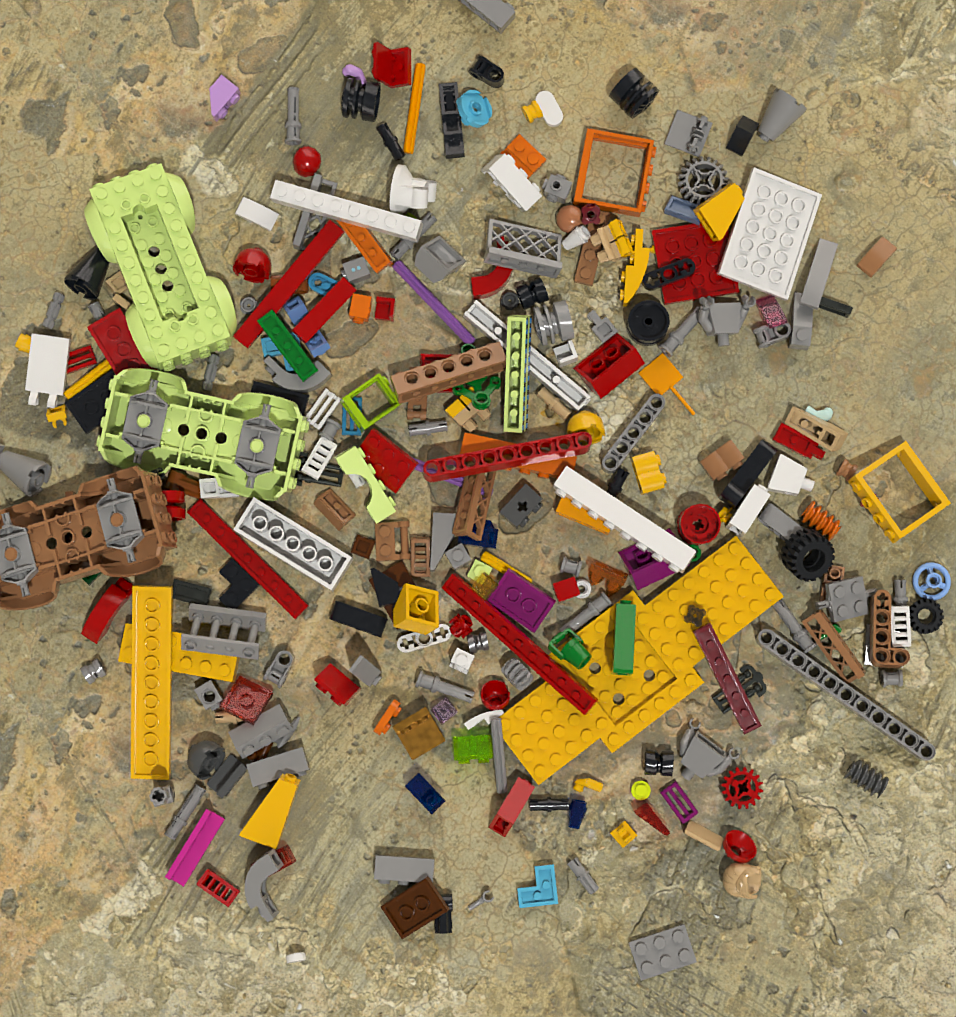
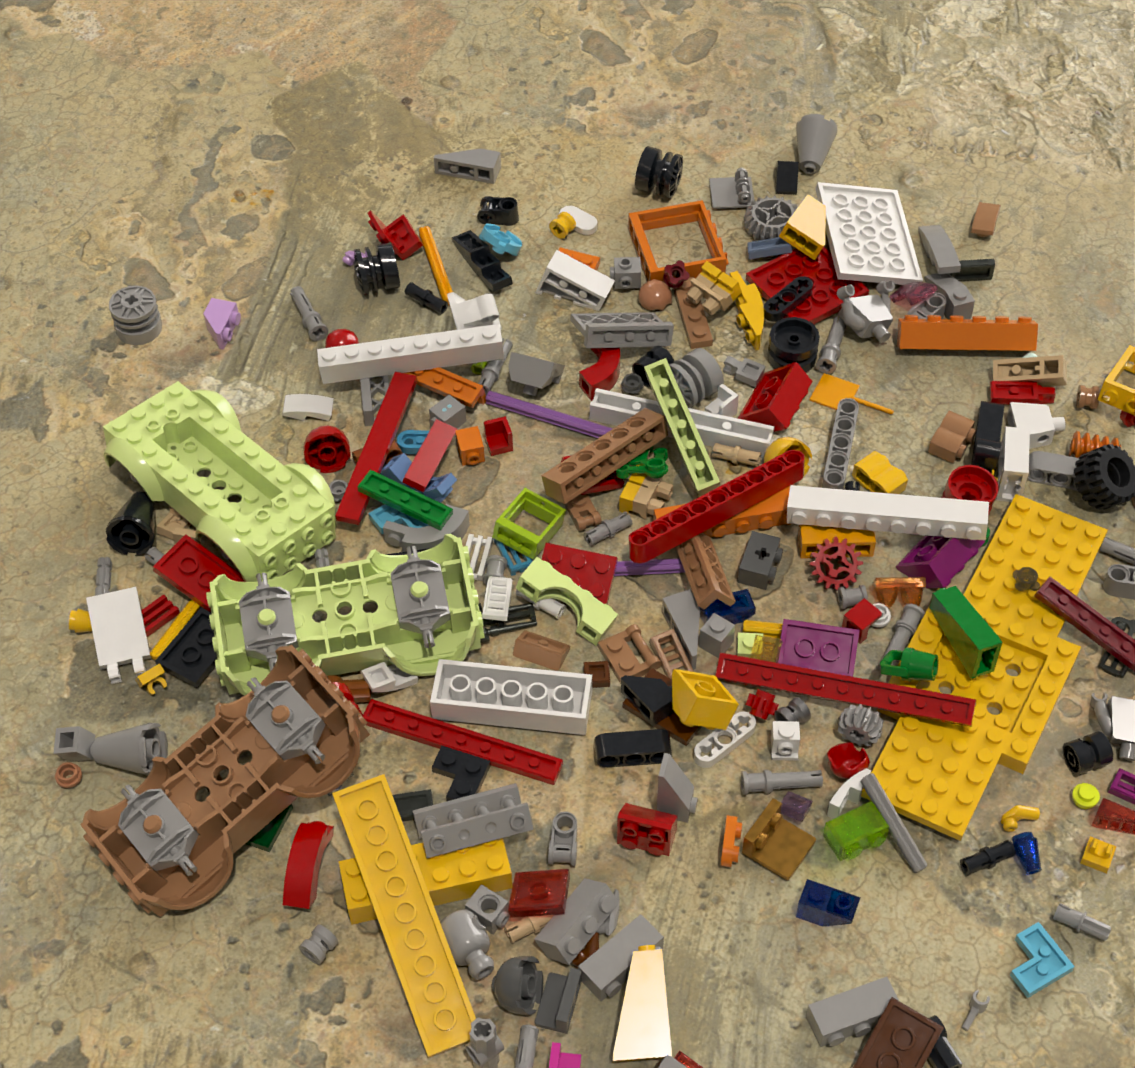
camera: 25 degrees left, 30 degrees down
(160, 74) = (135, 315): none -> light grey wheel
(185, 714) = (468, 942): none -> light grey piece
(511, 806) = (945, 879): slope -> none
(571, 534) = (831, 574): none -> red gear
(577, 237) = (671, 305): white cone -> none
(788, 372) = (967, 333): none -> orange brick

